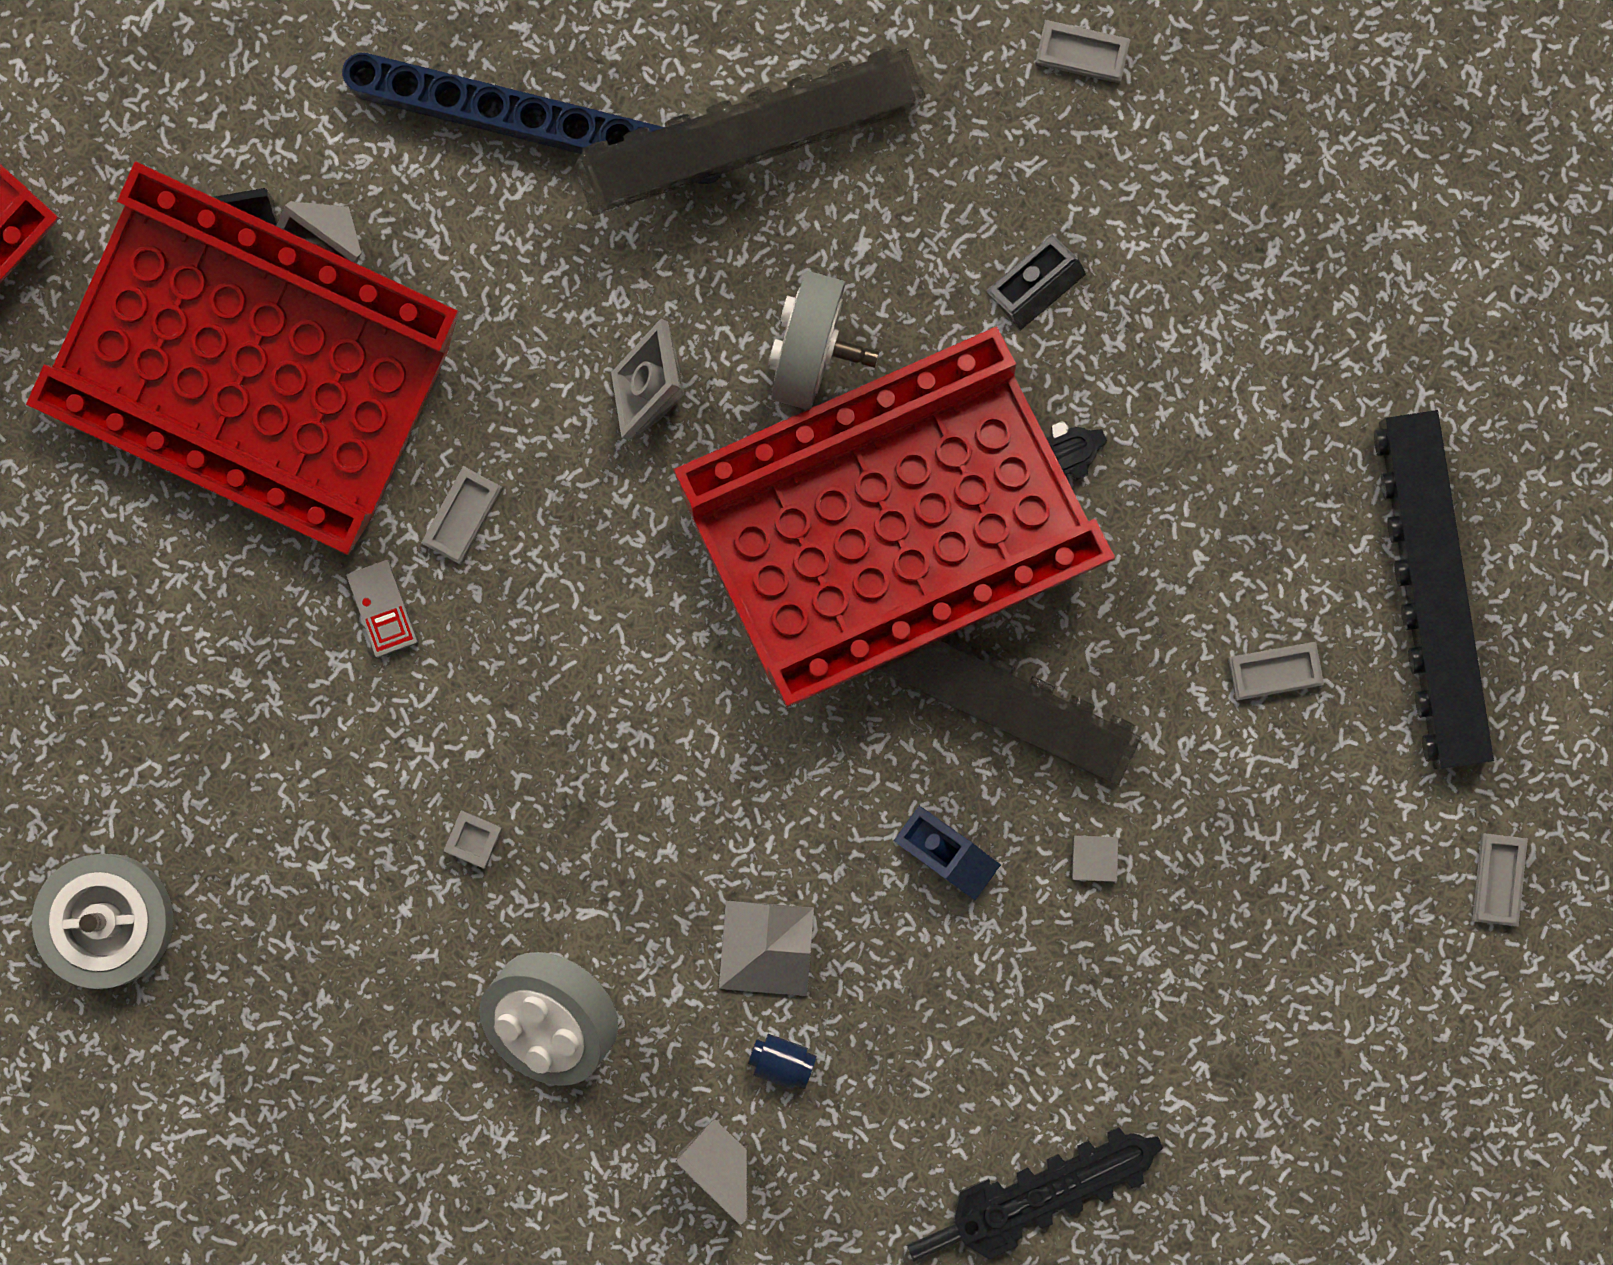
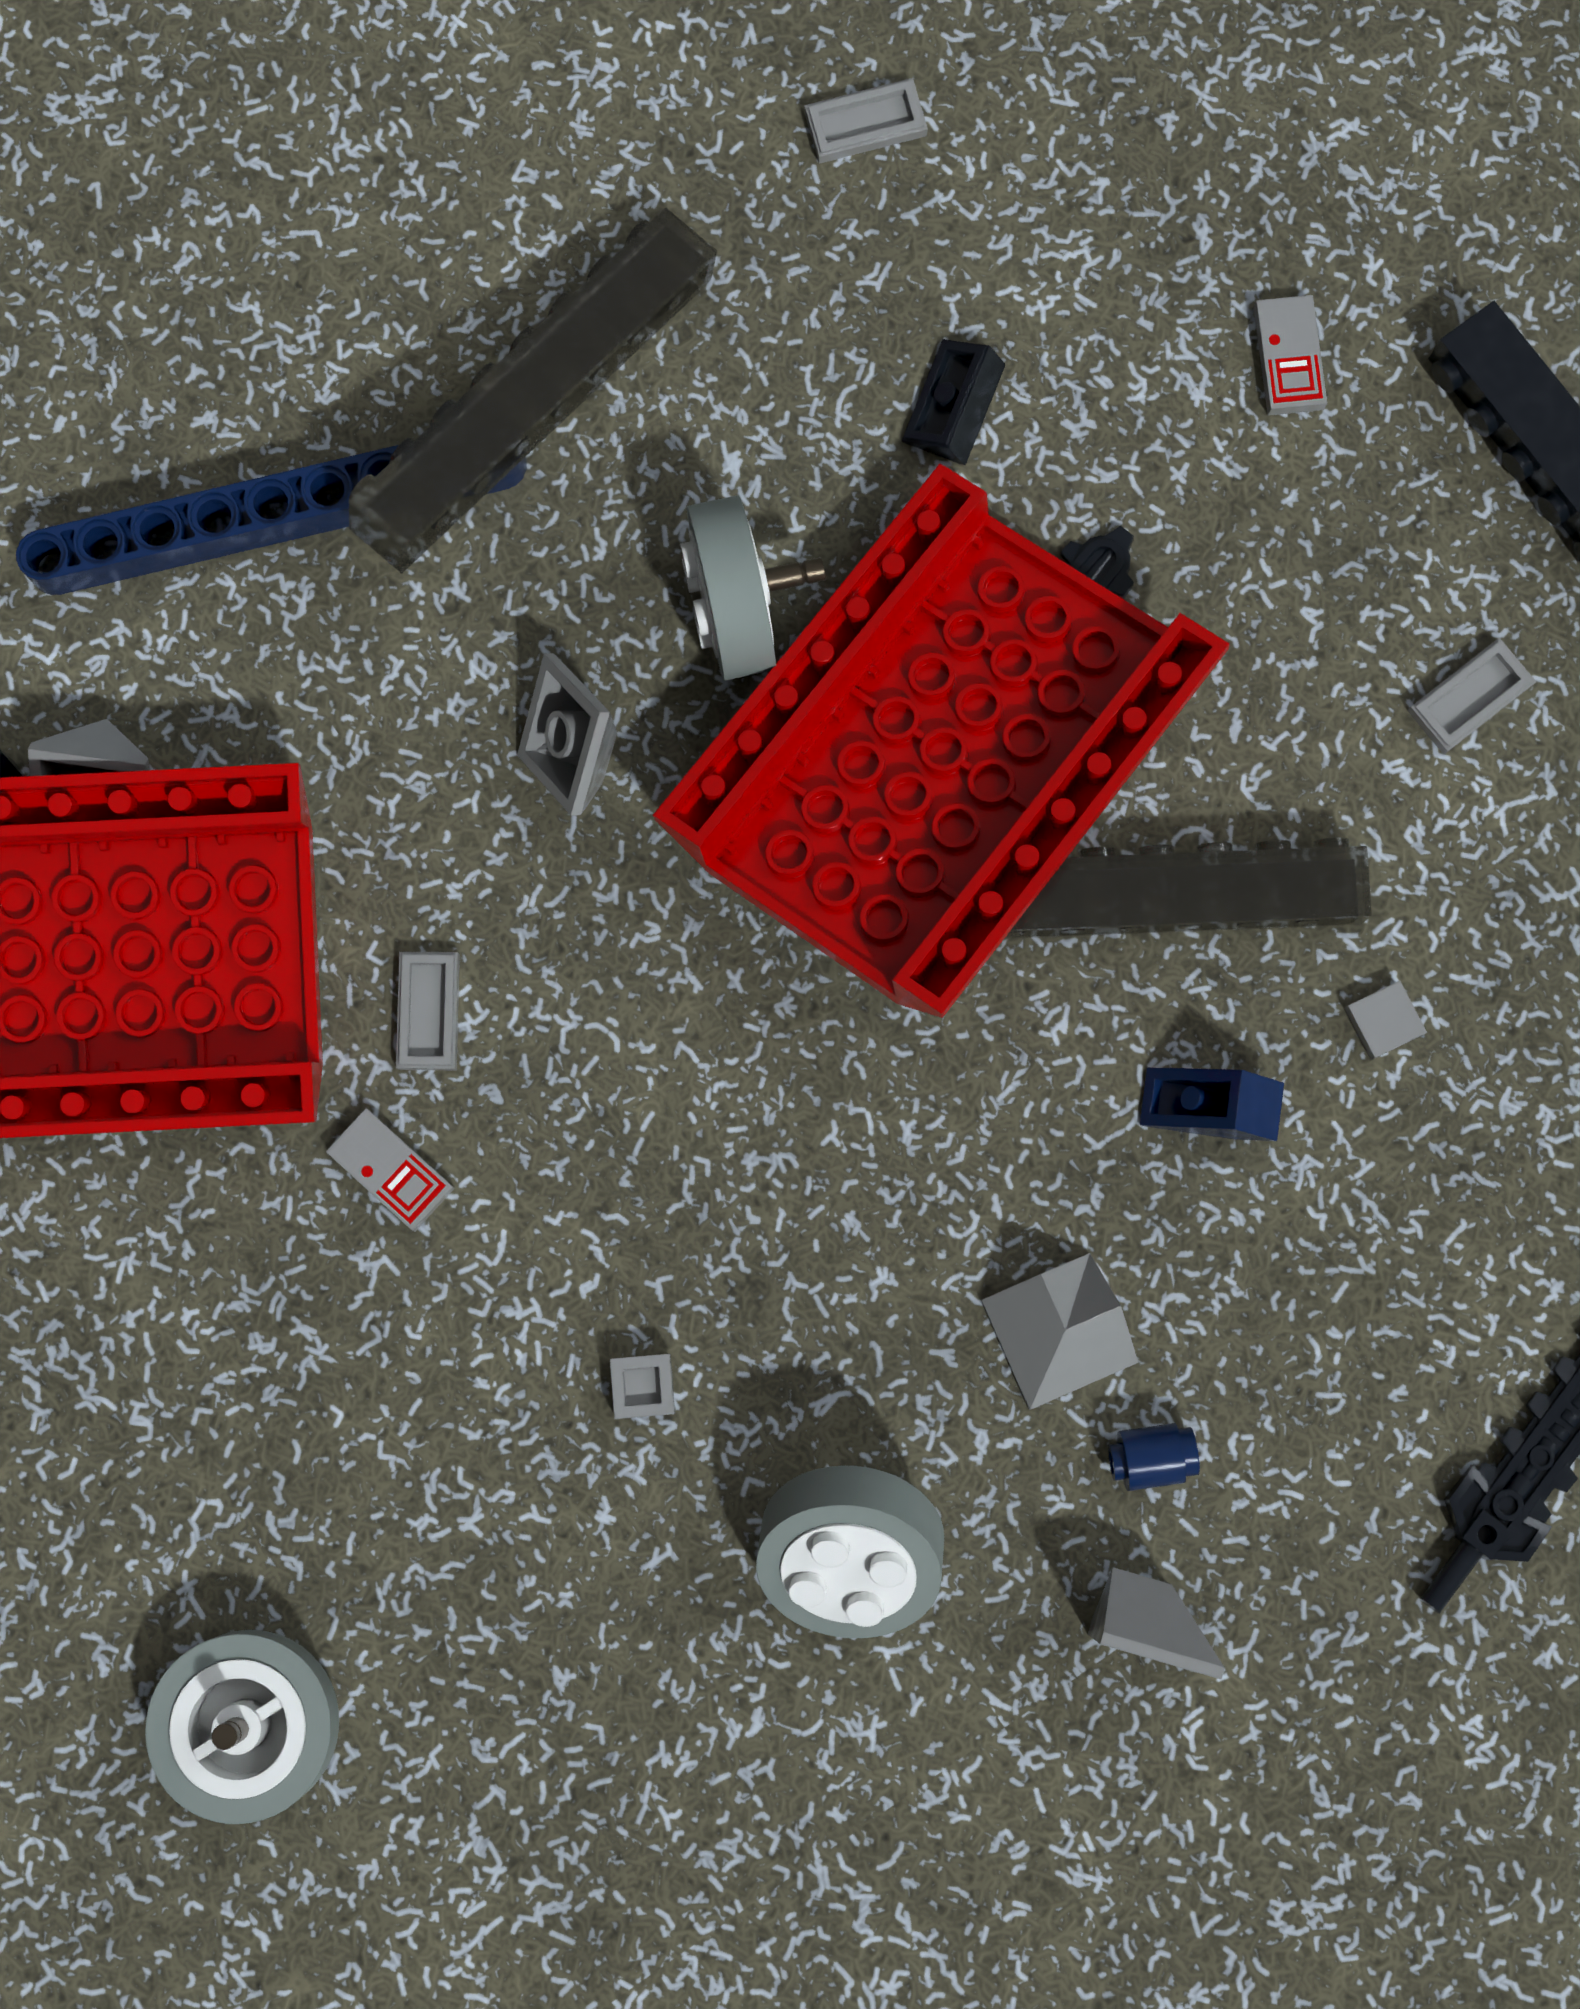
camera: 30 degrees left, 5 degrees down
(1283, 370) = (1290, 355): none -> light grey tile

